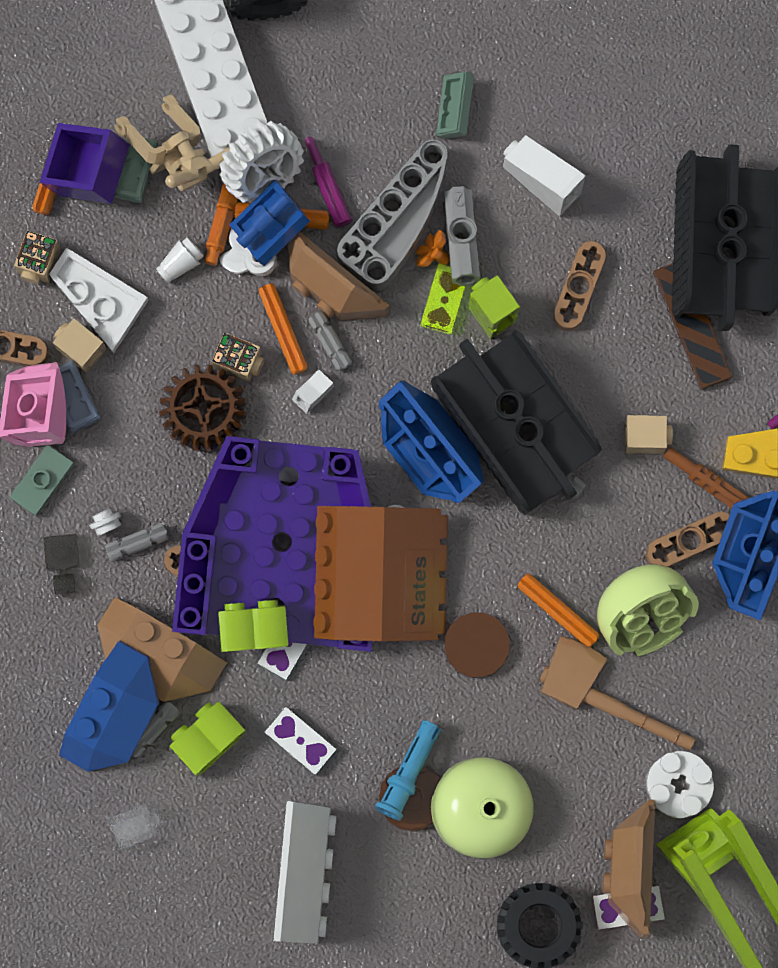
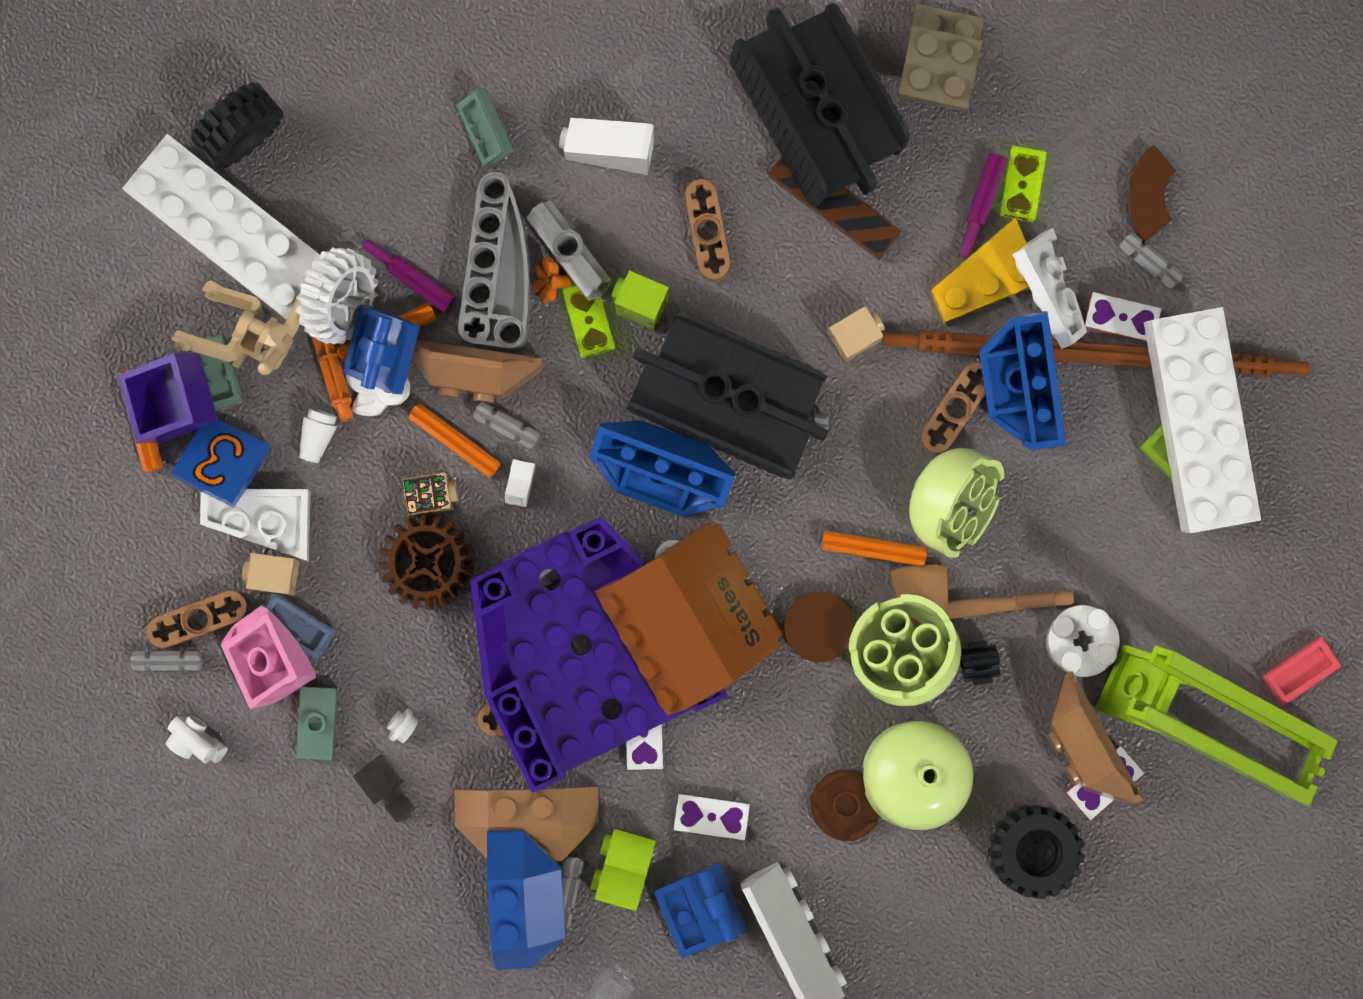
camera: 35 degrees left, 5 degrees up
(37, 257) = (178, 515): brick -> none
(94, 236) = (221, 462): none -> blue tile
(137, 542) = (443, 726): light grey axle -> none
(246, 807) = (700, 910): none -> blue plate
(253, 627) = (604, 742): lime brick -> none
(402, 784) = (831, 799): dark azure pin -> none
(525, 707) = (905, 663): none -> yellowish green cylinder
(586, 749) = (980, 663): none -> black gear

